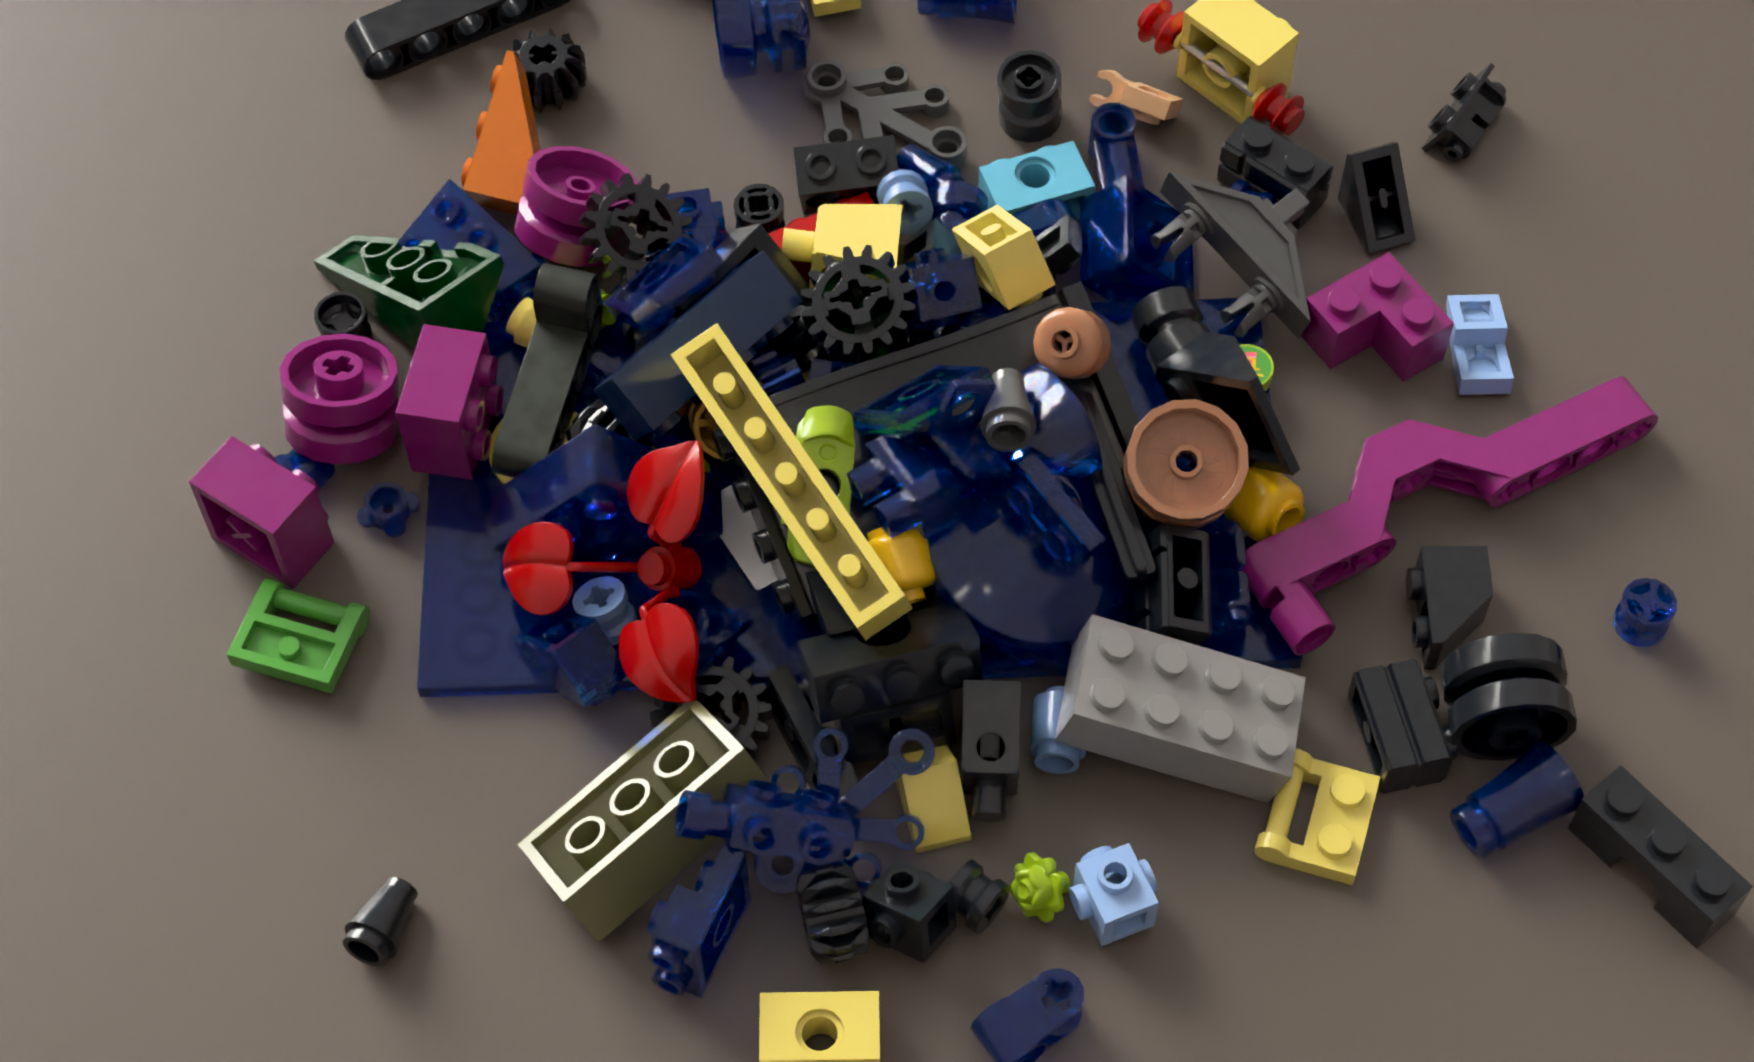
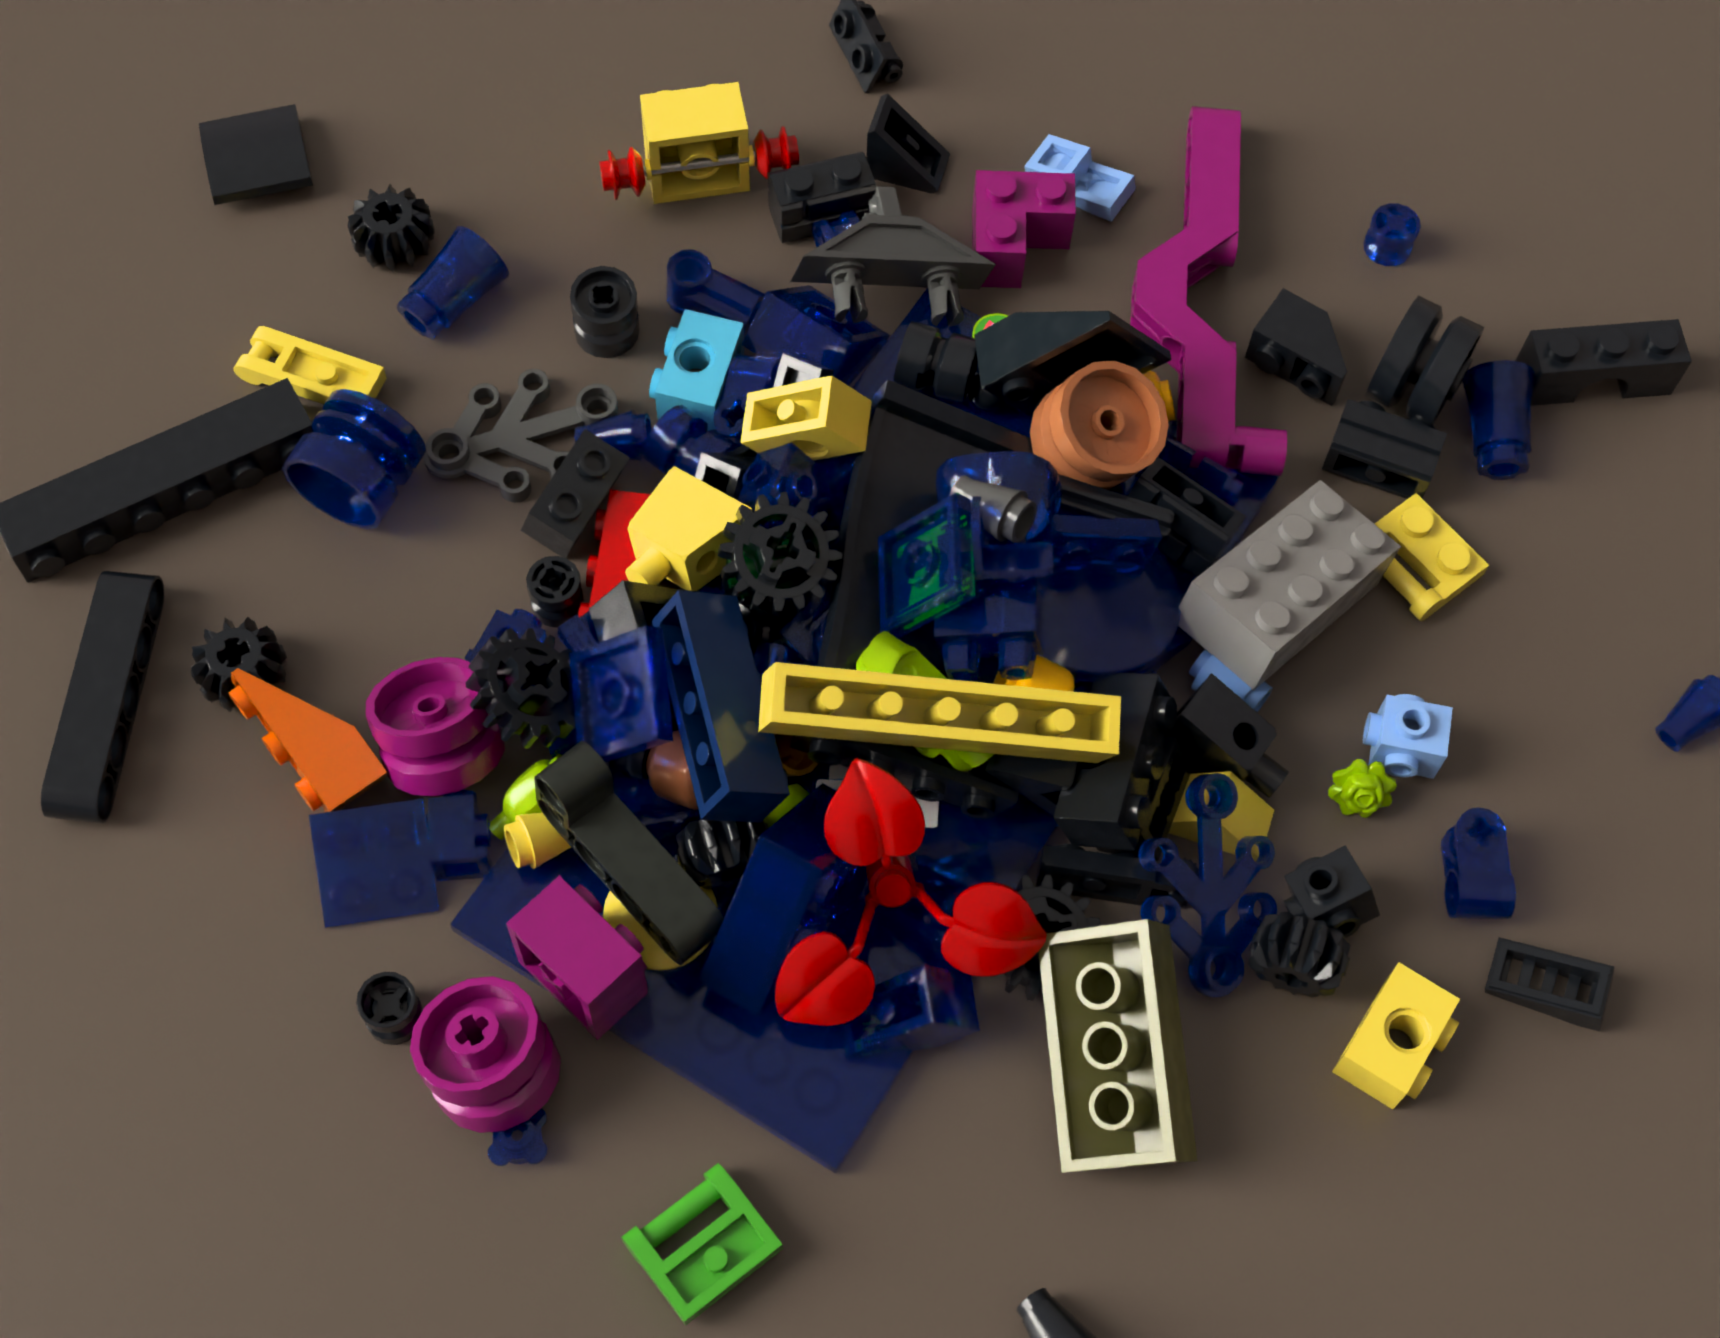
camera: 60 degrees left, 5 degrees up
(263, 510) = (560, 1194): magenta brick -> none
(385, 496) = (620, 1069): clear blue plate -> none
(416, 283) = (417, 913): dark green wedge -> none
(606, 602) = (901, 957): medium blue wheel -> none
(698, 925) = (1260, 1072): clear blue plate -> none
(765, 811) = (1215, 947): clear blue brick -> none
(910, 190) = (645, 464): medium blue wheel -> none
(978, 896) = (1348, 830): black wheel -> none
(1089, 340) = (931, 427): nougat head -> none
(1147, 102) = (665, 239): light nougat plate -> none

